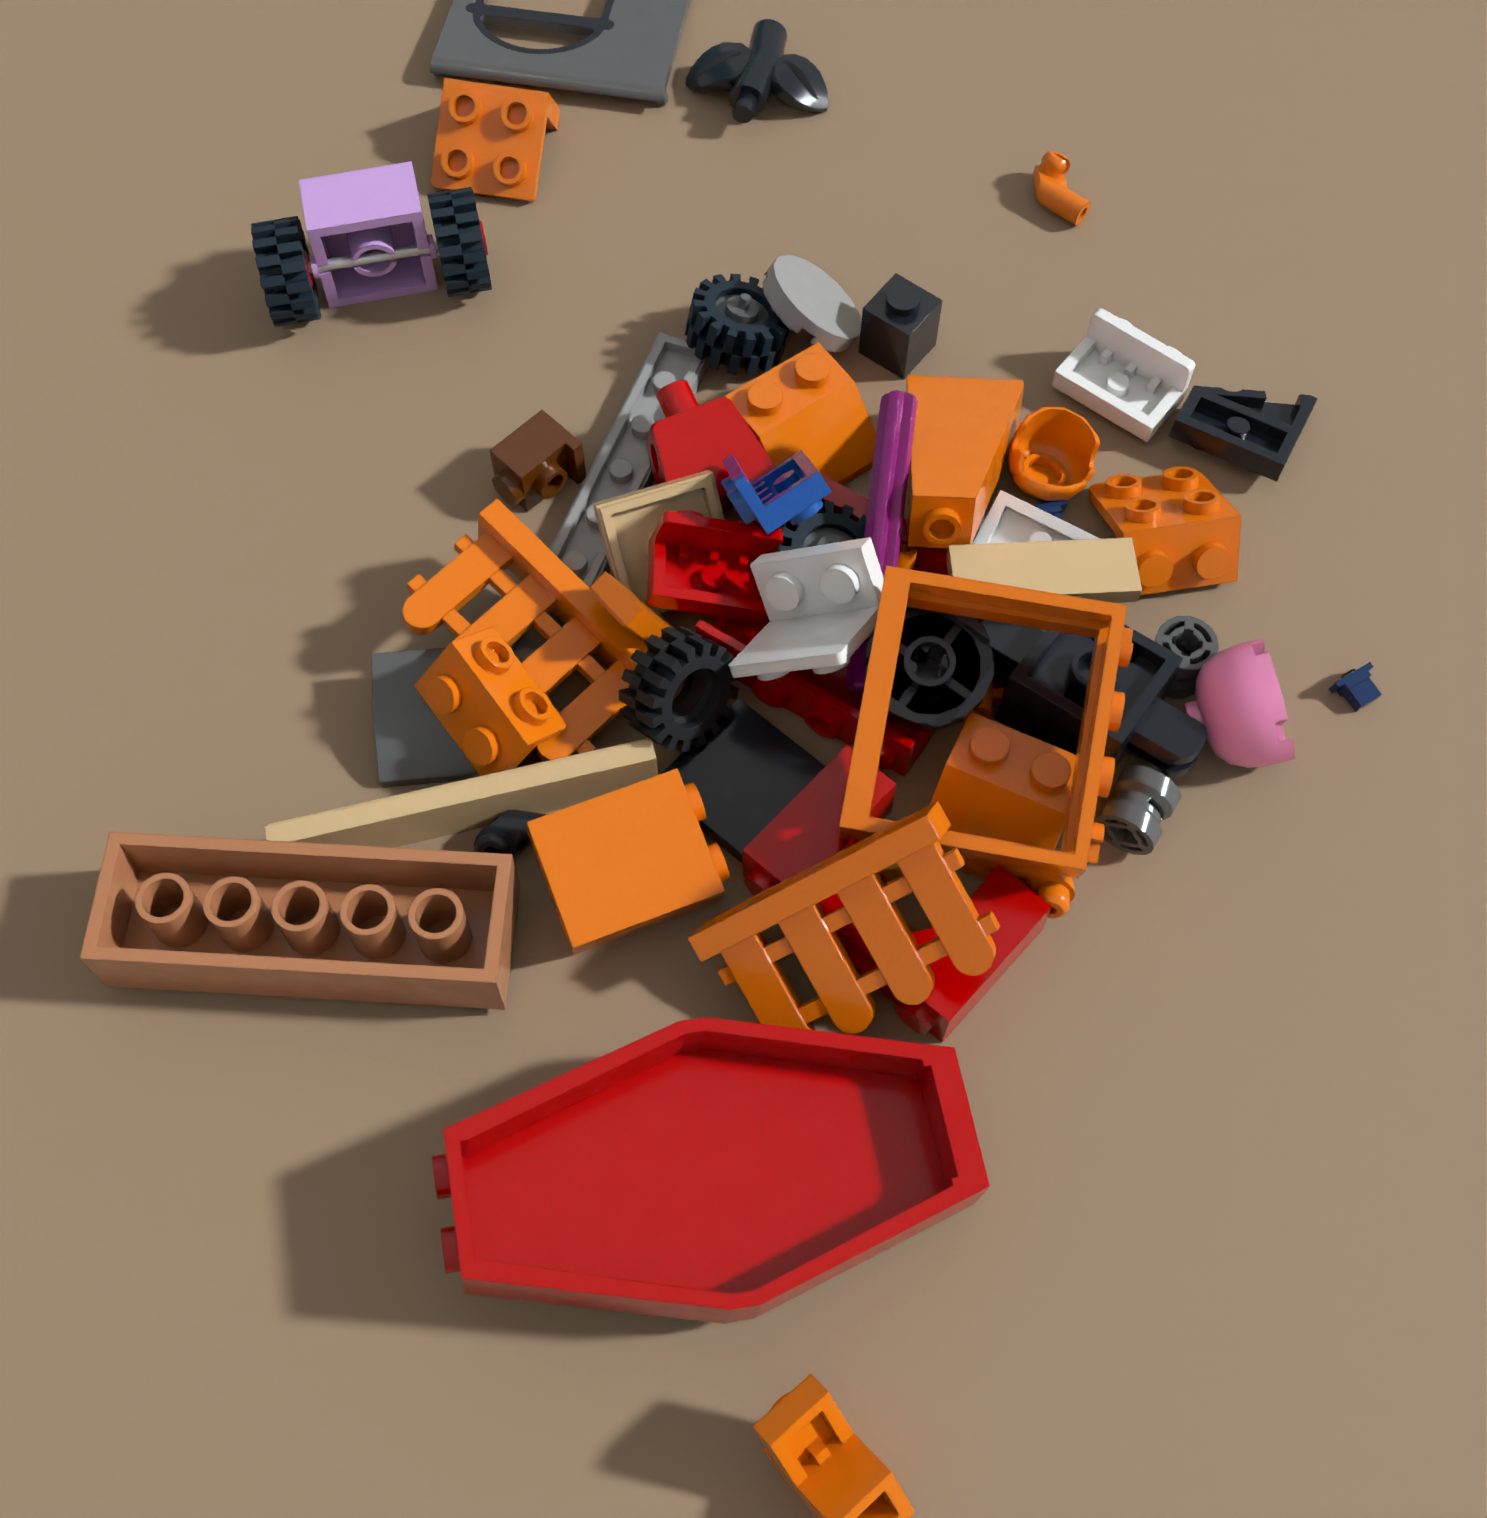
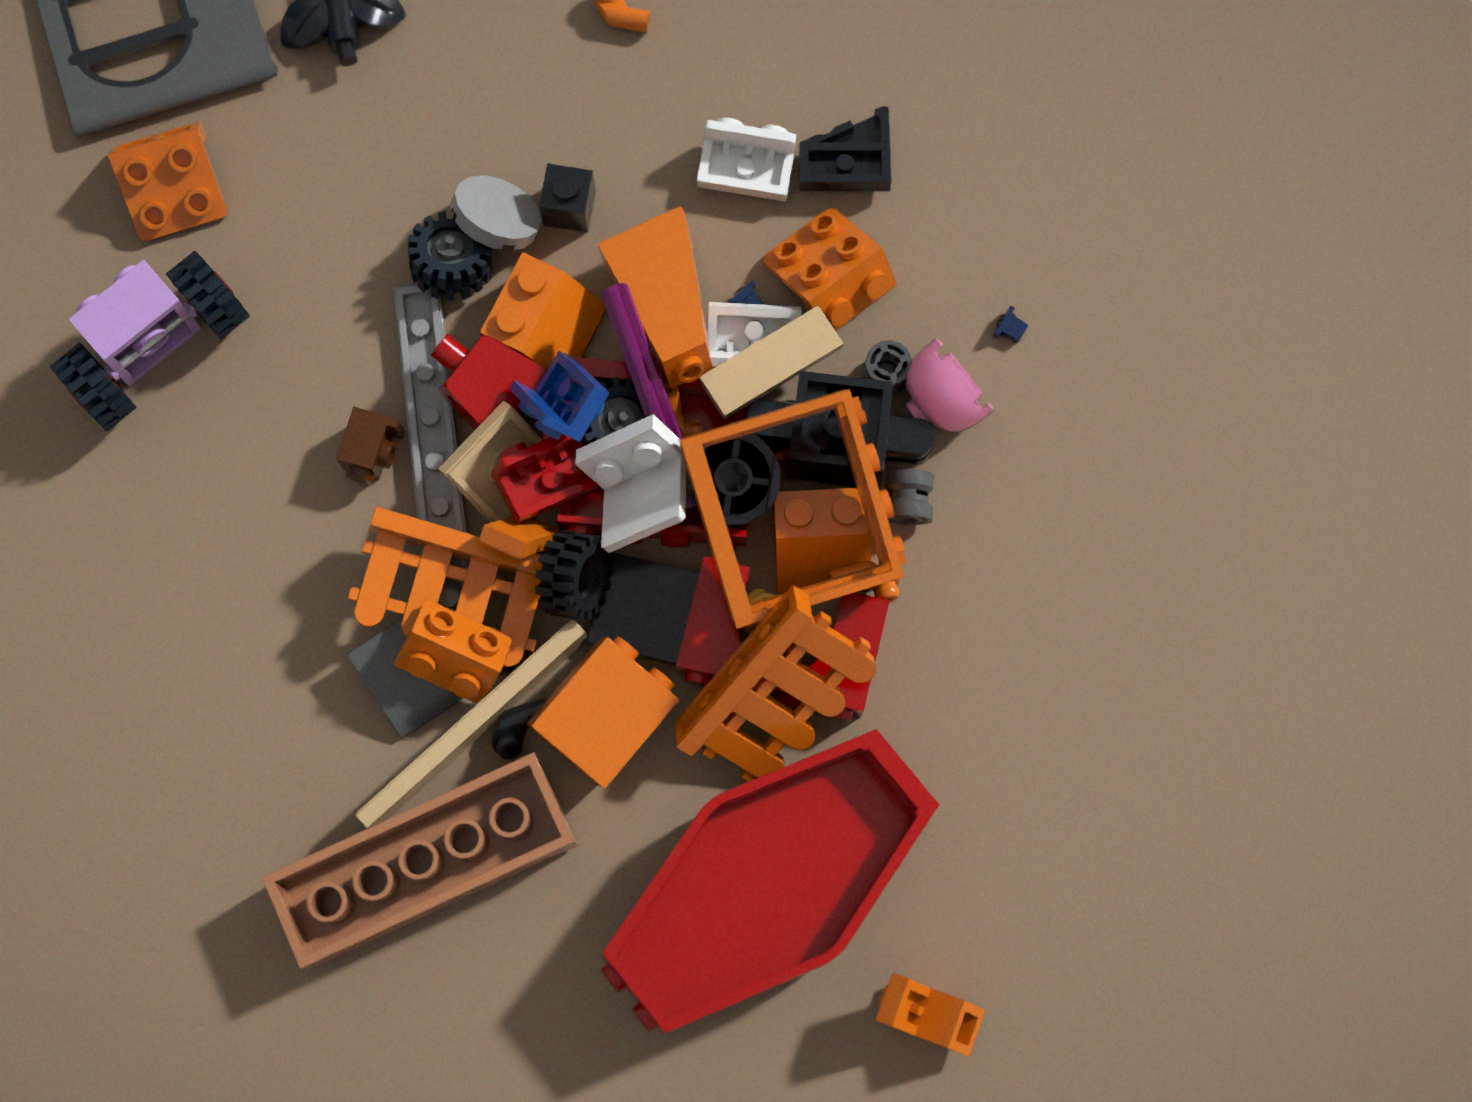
camera: 30 degrees left, 15 degrees up
(1053, 454) = (729, 253): orange hair -> none

